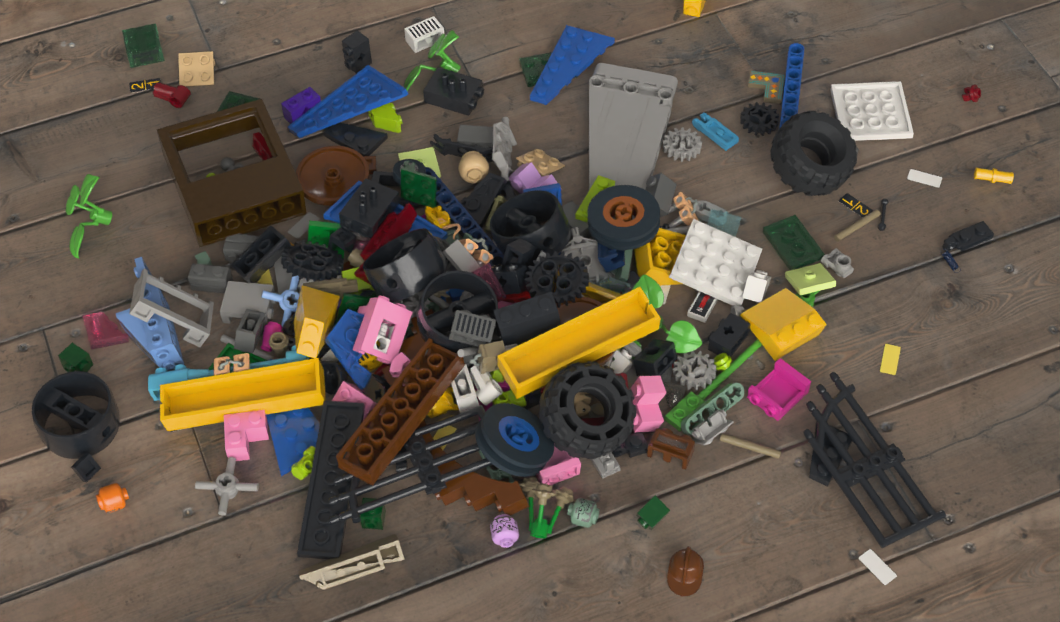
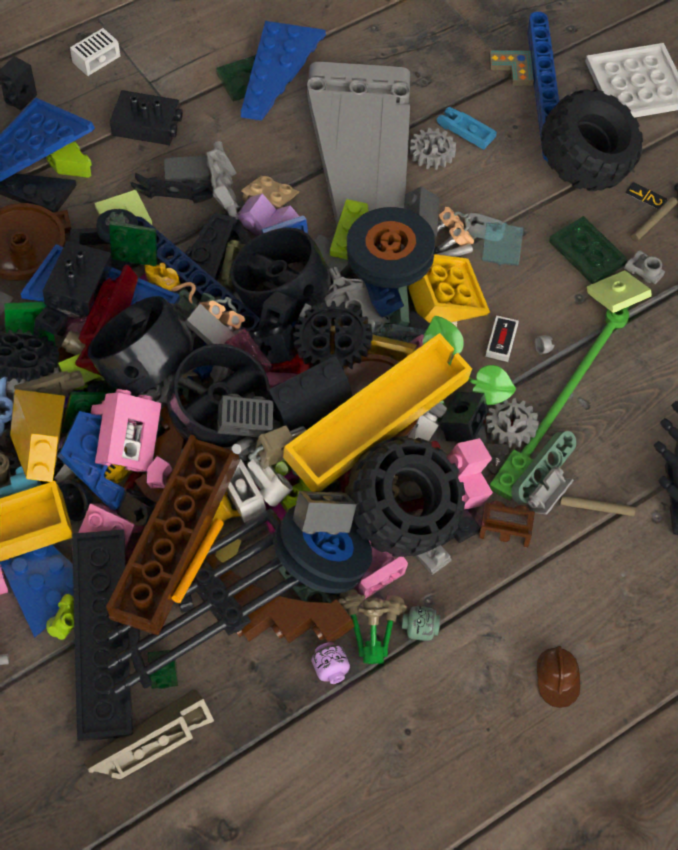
camera: 15 degrees left, 5 degrees up
(414, 434) = (197, 561): none -> light orange bar
(438, 47) = (130, 83): bright green plant -> none
(473, 167) = (191, 208): tan piece -> none
(518, 411) = (324, 512): none -> brick
(652, 513) = (505, 611): dark green brick -> none
(715, 263) = (506, 288): white plate -> none
(722, 361) = (542, 406): lime plate -> none
(729, 335) = (542, 375): black brick -> none
(756, 286) = (560, 308): white slope -> none
(759, 119) = (512, 106): black gear -> none
(779, 390) = (615, 431): dark pink panel -> none
(783, 323) = (601, 348): yellow slope -> none

